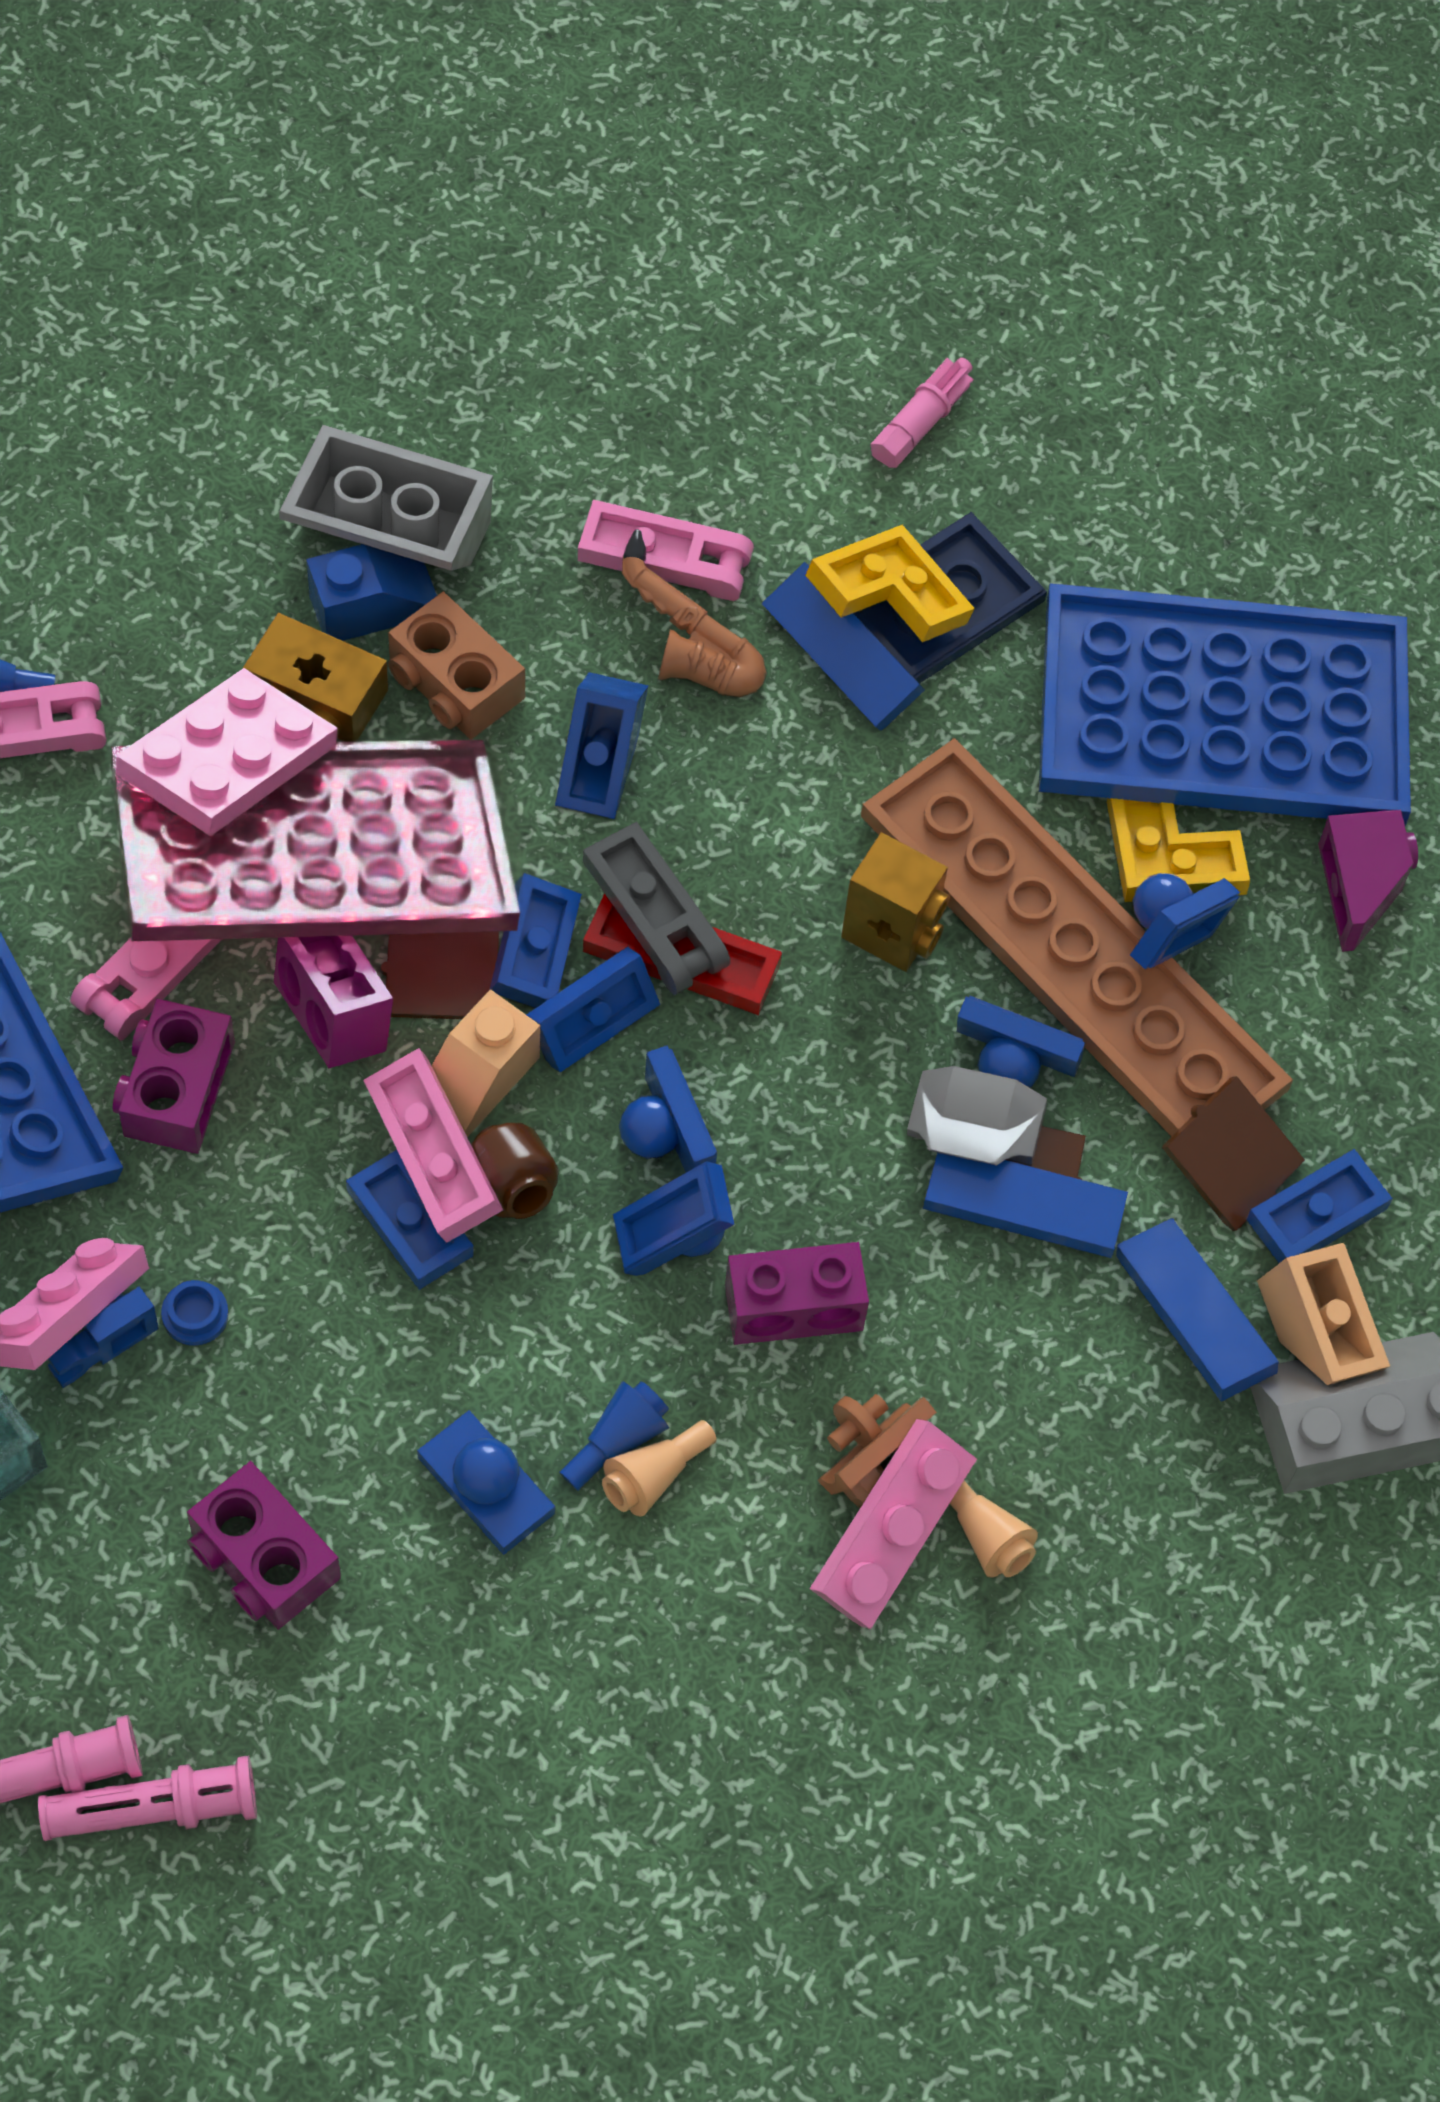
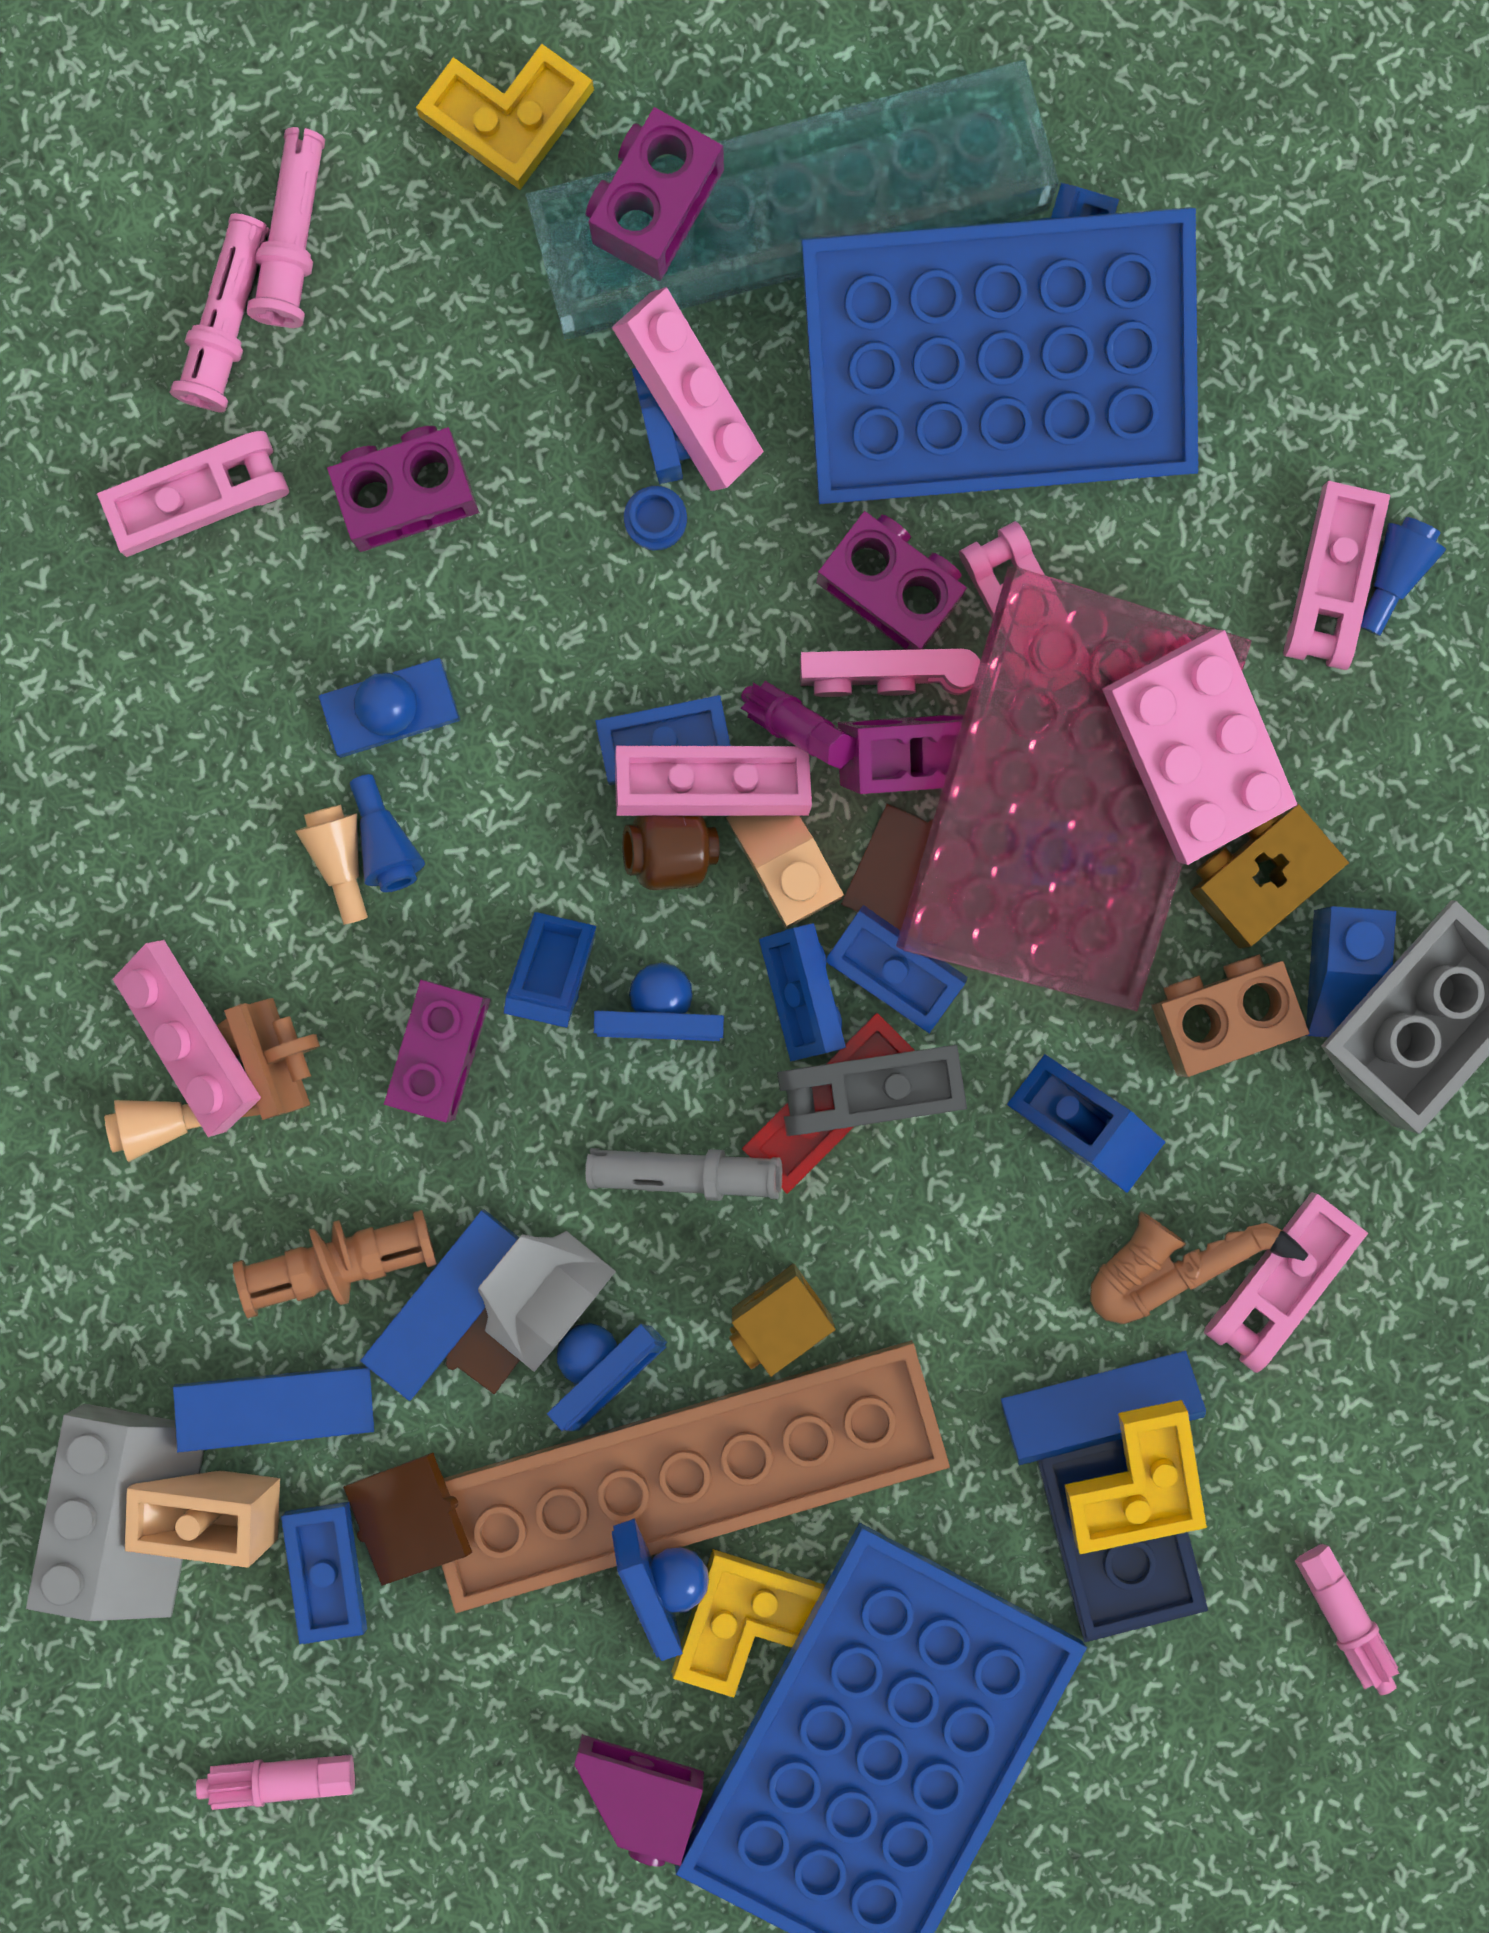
camera: 120 degrees right, 25 degrees up
(260, 1048) = (891, 670): none -> bright pink plate
(346, 1096) = (789, 719): none -> magenta piece
(352, 1756) = (191, 493): none -> bright pink plate
(796, 1017) = (686, 1173): none -> light grey pin
(1035, 1306) = (333, 1264): none -> nougat piece

